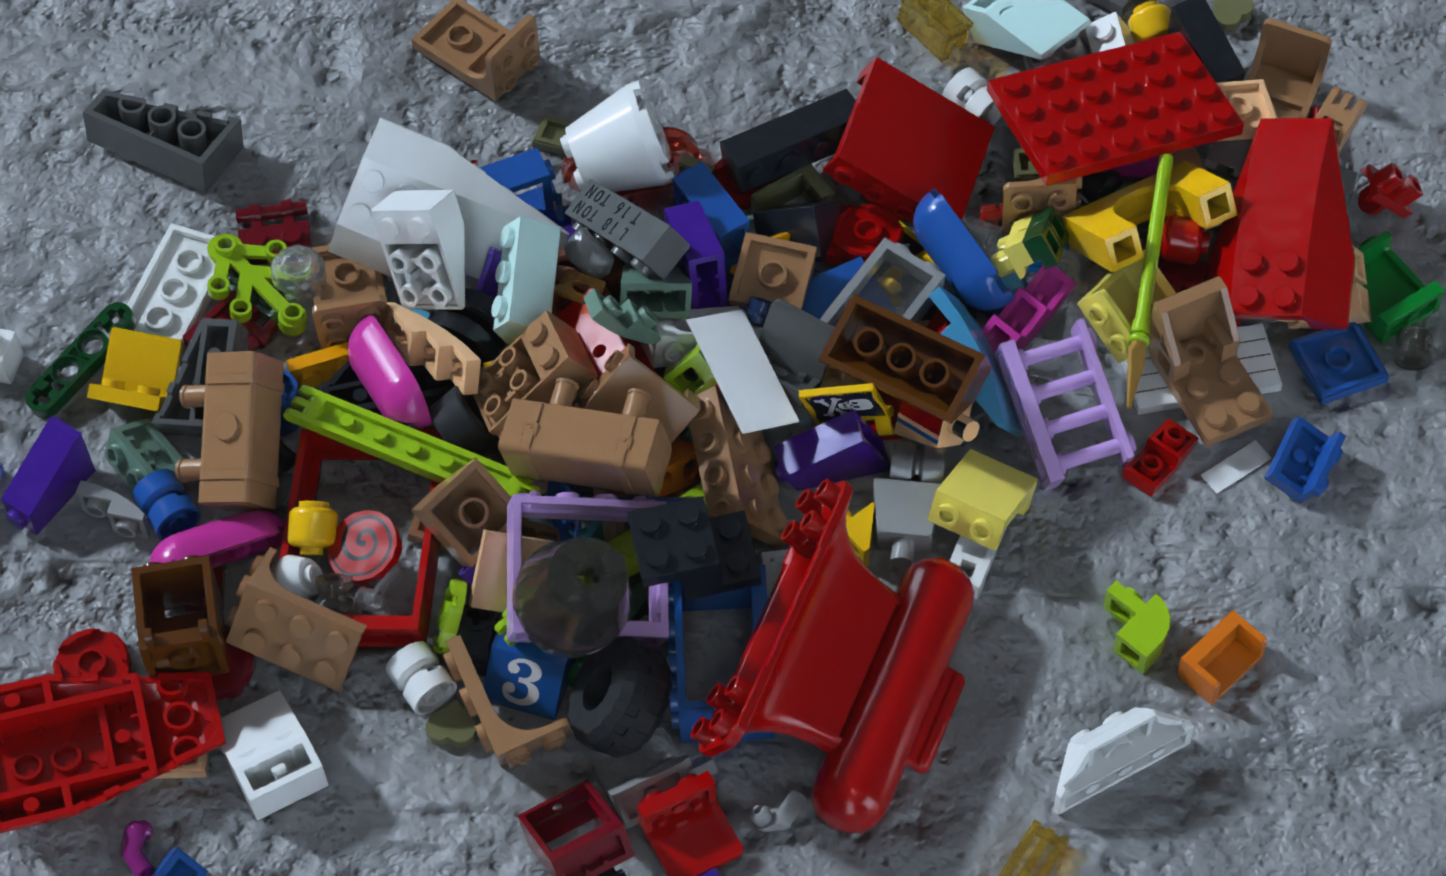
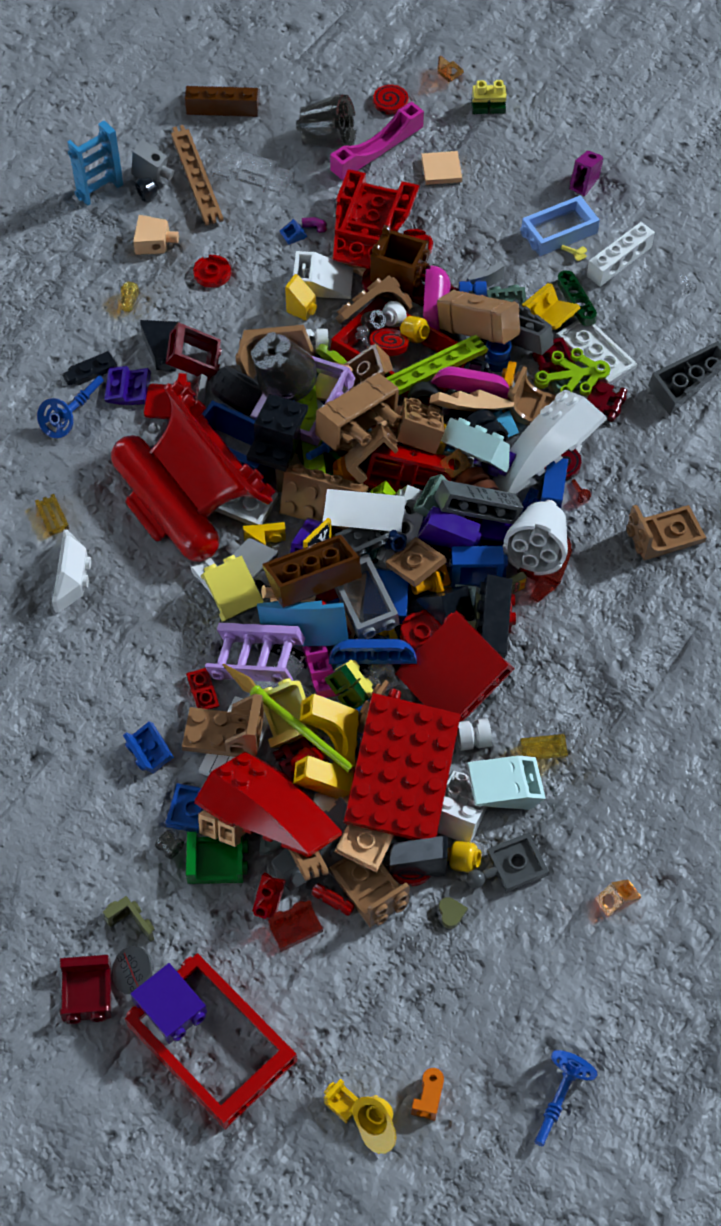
camera: 120 degrees right, 0 degrees up
(47, 476) = (517, 260): dark purple slope -> none
(299, 273) = (561, 382): clear hair -> none
(345, 751) = (300, 298): none -> yellow slope
(424, 247) = (522, 404): white slope -> none
(549, 134) = (587, 542): olive tile -> none
(589, 254) = (476, 475): dark grey hair -> none
(625, 319) = (422, 466): sand green slope -> none
(1144, 628) = (118, 623): lime brick -> none
(1222, 657) = (79, 643): orange panel -> none
(1236, 466) = (173, 724): white sticker -> none
(1382, 147) = (294, 925): none -> clear red bracket

